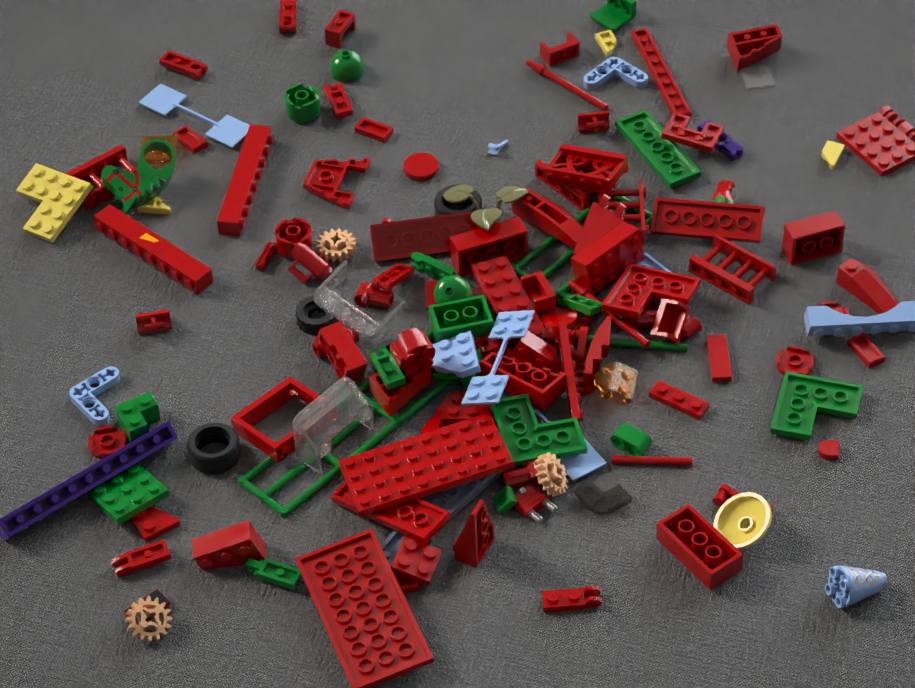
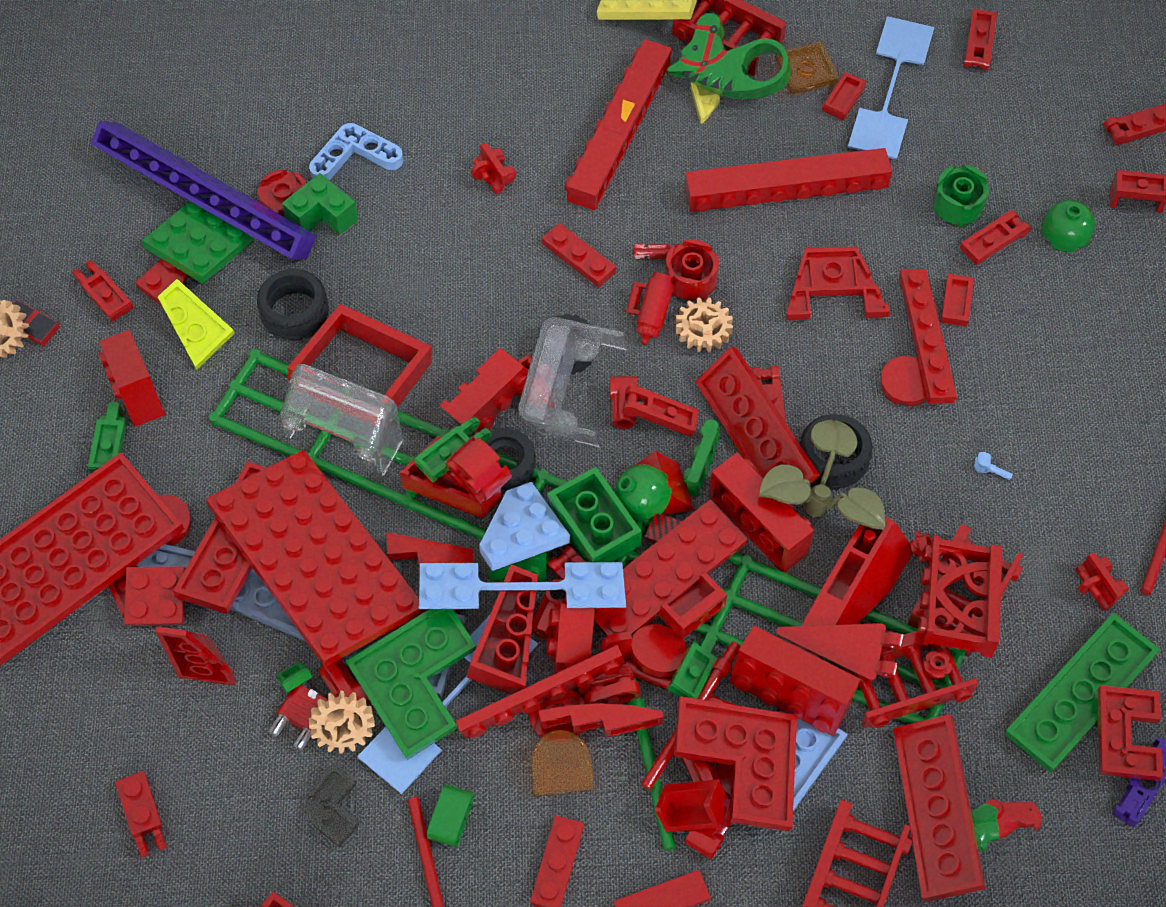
camera: 70 degrees right, 15 degrees up
(200, 506) = (195, 323): none -> neon yellow wing
(246, 296) = (579, 255): none -> red plate
(396, 147) = (927, 336): none -> red plate
(539, 186) = (919, 543): none -> red plate
(623, 193) = (937, 671): none -> red plate

